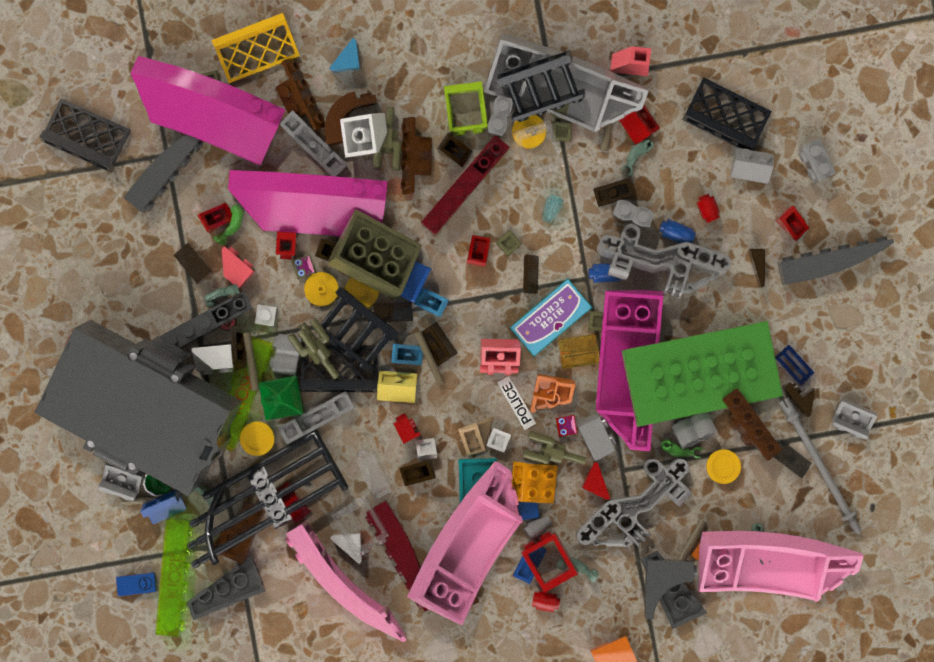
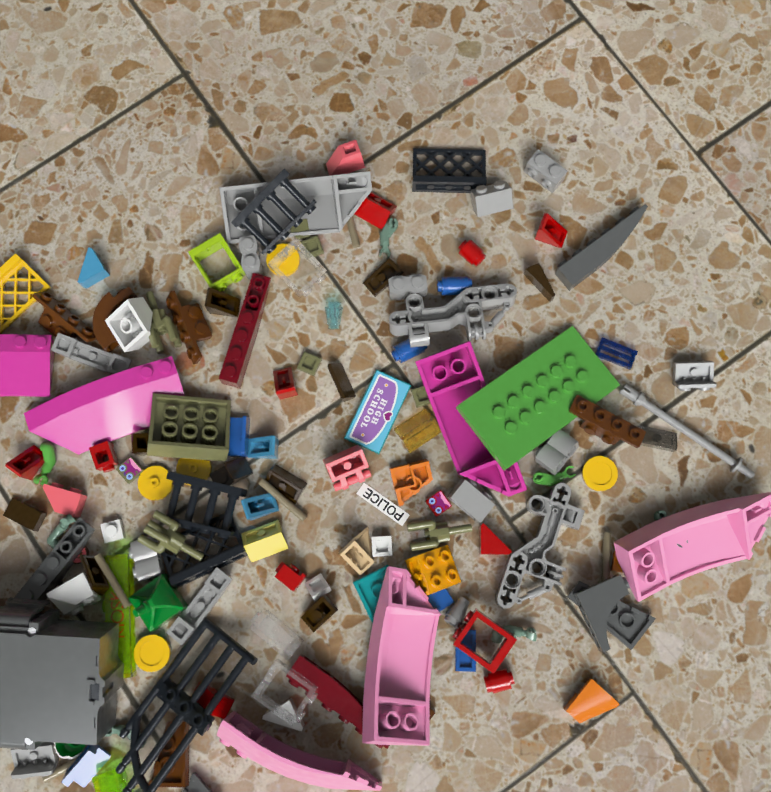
camera: 25 degrees left, 10 degrees down
(803, 402) = (641, 381): dark brown slope -> none

